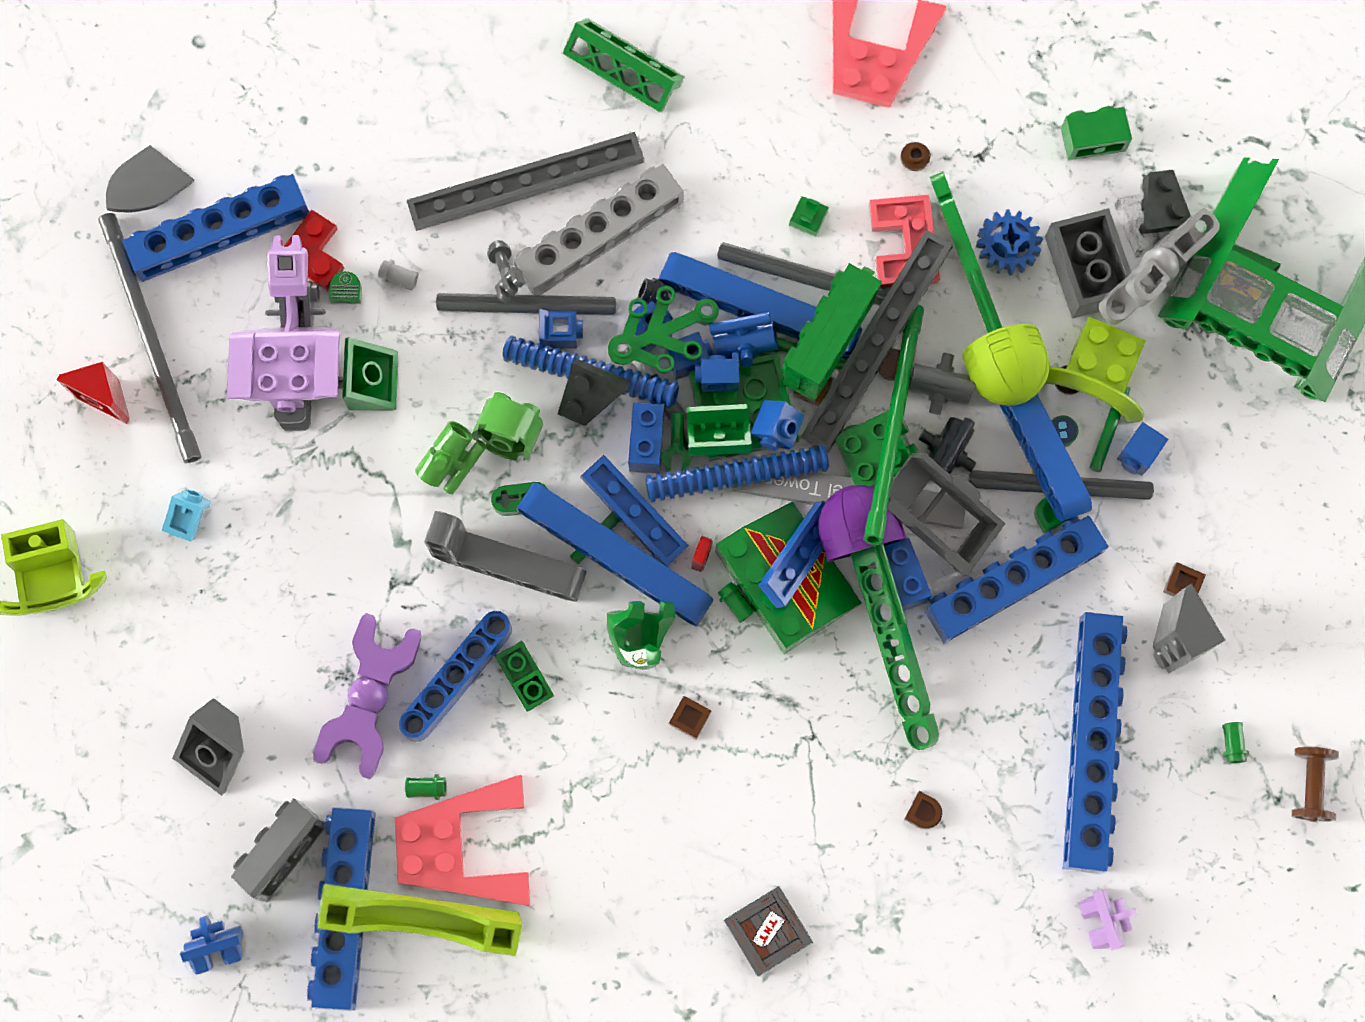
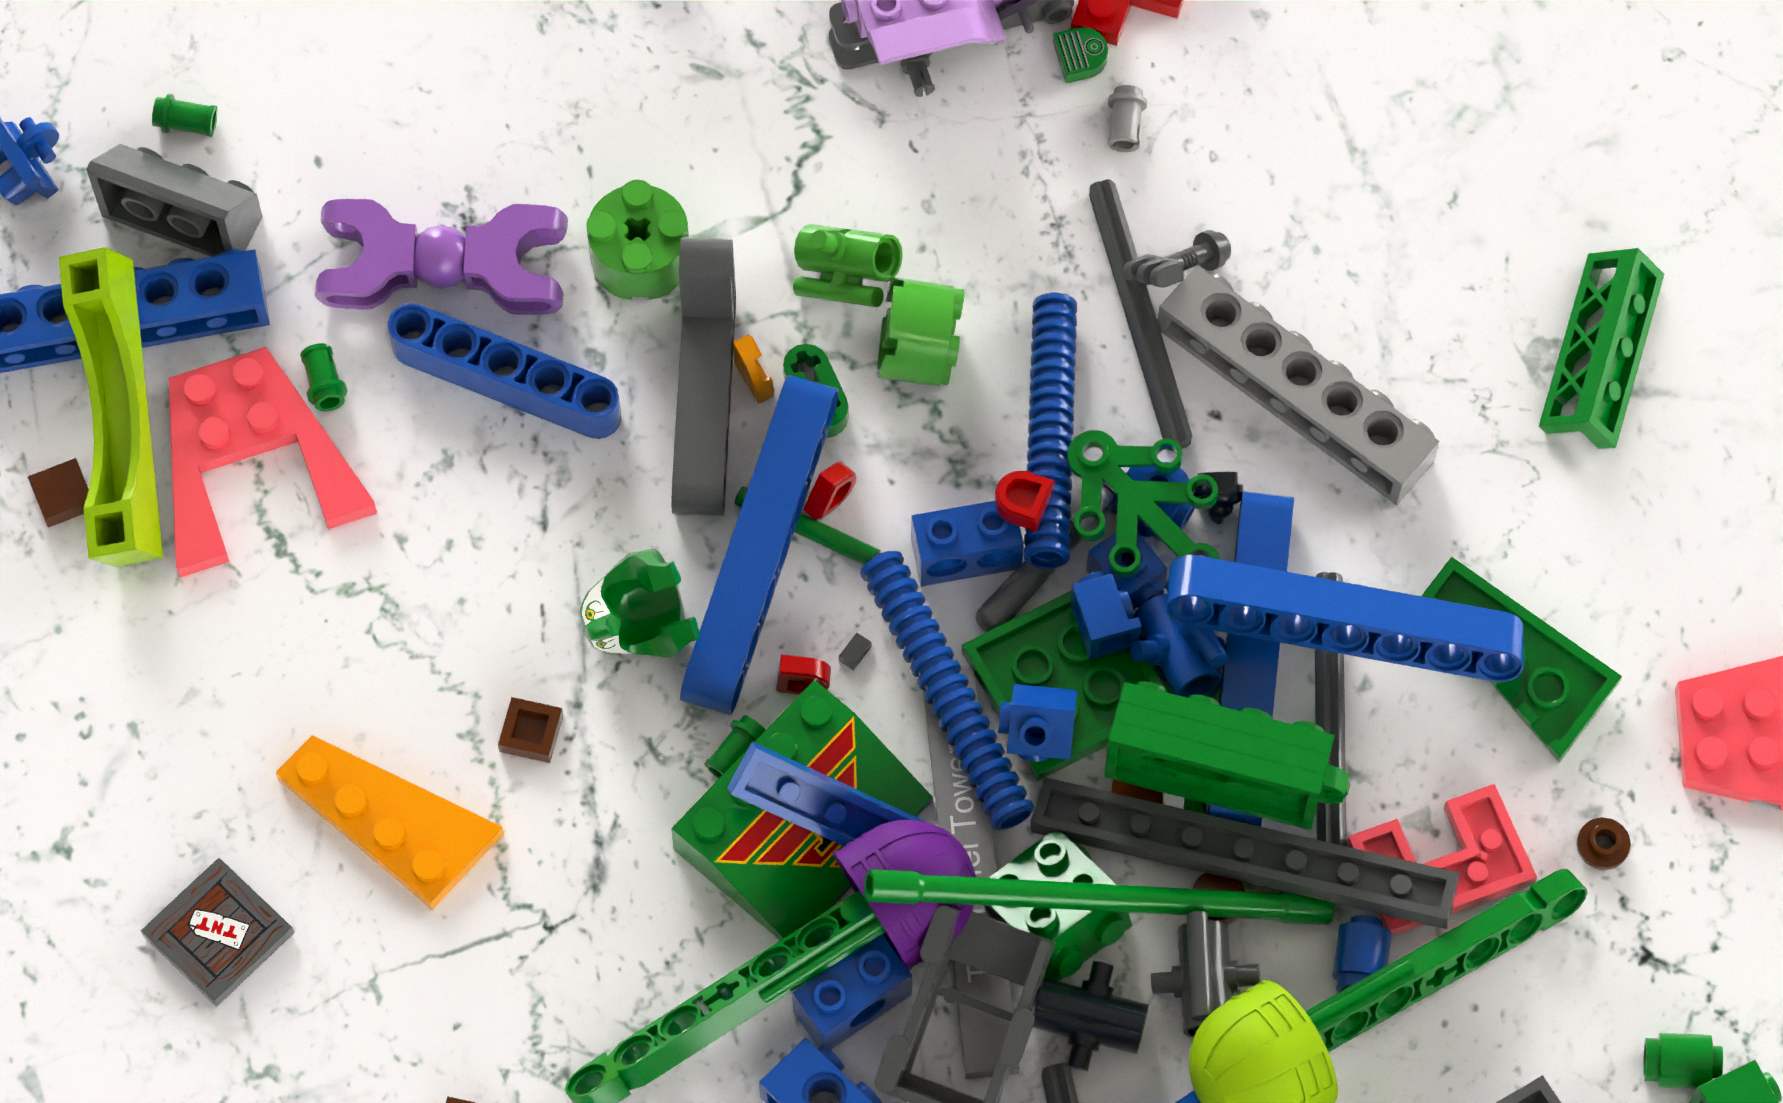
camera: 75 degrees right, 10 degrees down
(211, 745) = (314, 65): dark grey slope -> none
(216, 833) = (184, 116): none -> green pin
(369, 376) = (945, 118): green slope -> none
(379, 581) = (636, 240): none -> bright green brick
(454, 966) = (60, 492): none -> reddish brown tile
(495, 532) = (745, 359): none -> light orange tile
(524, 676) = (534, 471): green slope -> none
(525, 181) = (1347, 258): dark grey plate -> none
(559, 329) = (1109, 367): blue window -> none
(589, 392) = (1013, 430): pearl dark grey wing -> none
(590, 505) = (830, 490): none -> red tile
(634, 511) = (838, 554): blue plate -> none
(640, 395) = (1023, 498): none -> red tile
(677, 431) = (969, 592): green bar -> none
(690, 520) = (855, 651): none -> dark grey piece
(718, 429) = (1006, 637): green bracket -> none
(728, 809) = (397, 824): none -> light orange wing
(762, 244) = (1345, 618): none -> blue beam
(802, 160) = (1559, 681): none -> green wing
(808, 216) = (1437, 701): green tile -> none
(949, 298) = (1360, 950): none -> blue brick
(1018, 233) = (1502, 1051): blue gear -> none
(1048, 155) = (1681, 1060): none -> green brick

